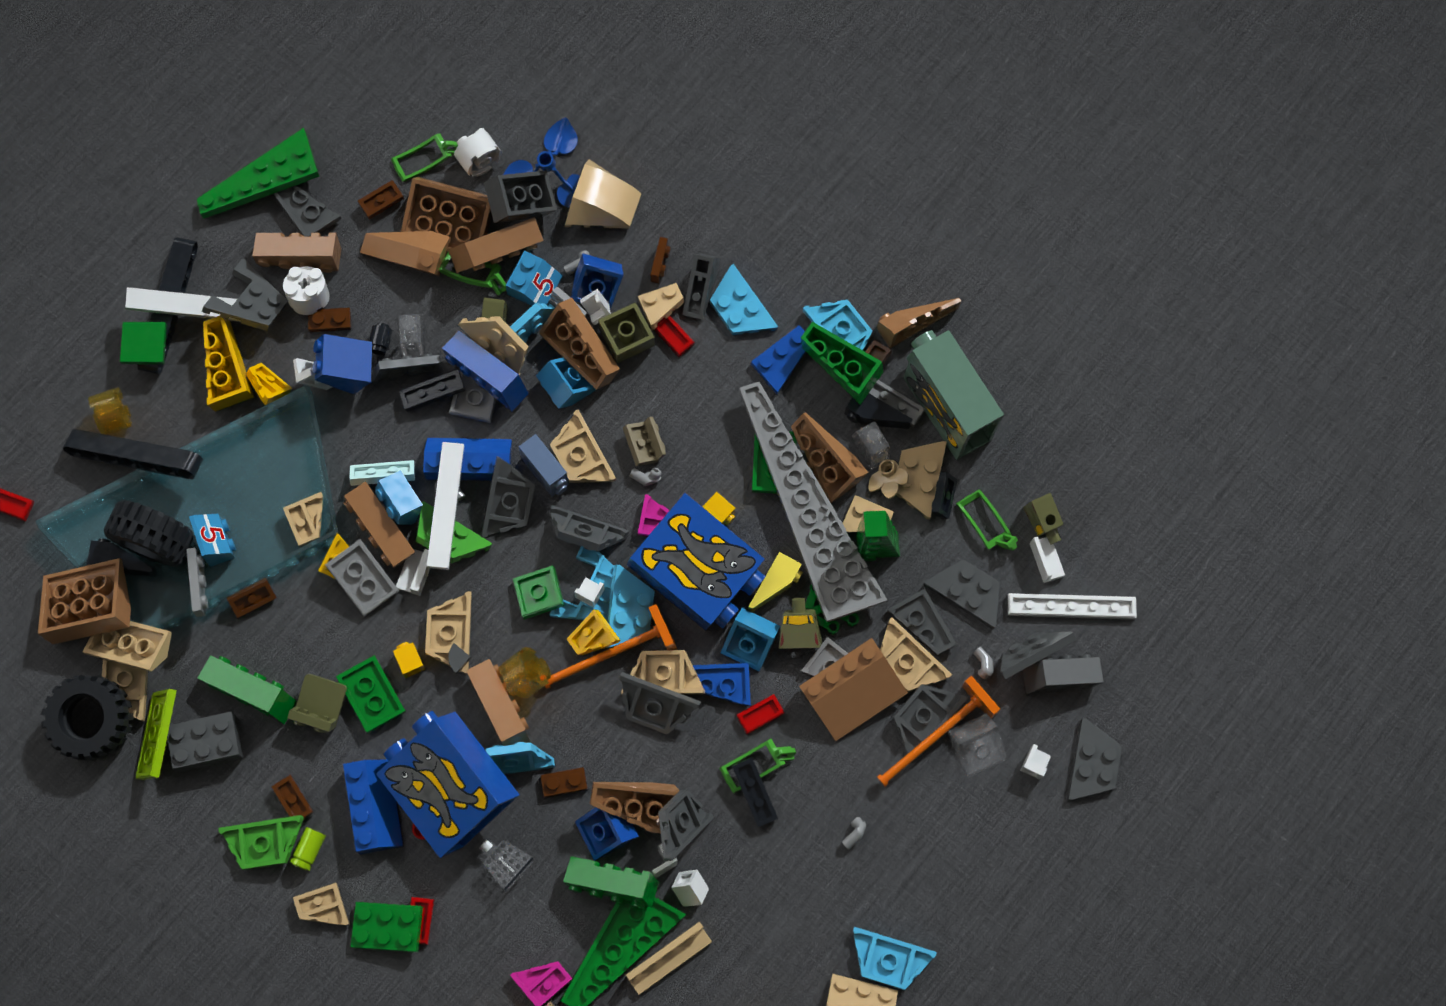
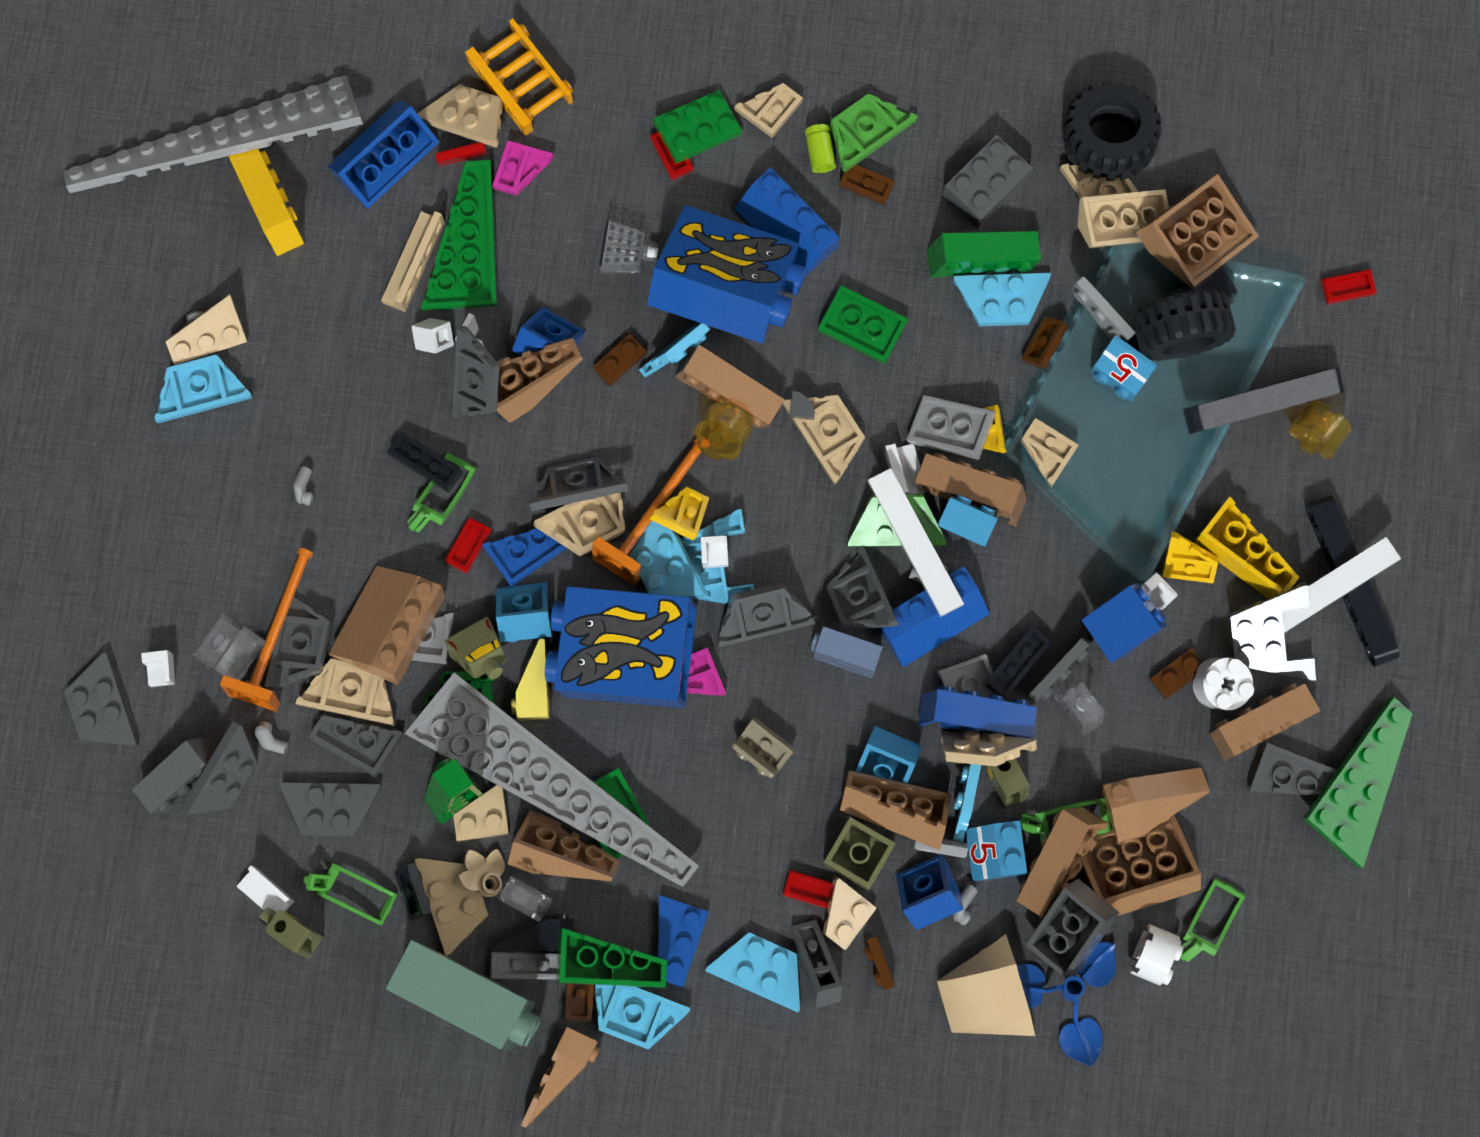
camera: 155 degrees right, 5 degrees up
(143, 343) = (1342, 518): green tile -> none
(155, 734) = (1037, 157): lime tile -> none
(255, 650) = (1002, 297): none -> medium azure wing
(318, 703) = (904, 280): olive bracket -> none
(373, 472) = (1007, 546): light aqua plate -> none
(380, 199) = (1221, 839): reddish brown plate -> none
(380, 338) = (1111, 684): black brick -> none
(408, 659) = (849, 379): yellow brick -> none
(538, 592) = (767, 524): green tile -> none
(580, 453) = (822, 695): tan wing -> none
(596, 306) = (907, 863): white panel -> none
(611, 882) = (509, 288): green wedge -> none
(646, 478) = (736, 714): light grey arm -> none
(720, 509) = (638, 724): yellow brick -> none
(1071, 606) = (211, 858): white tile -> none

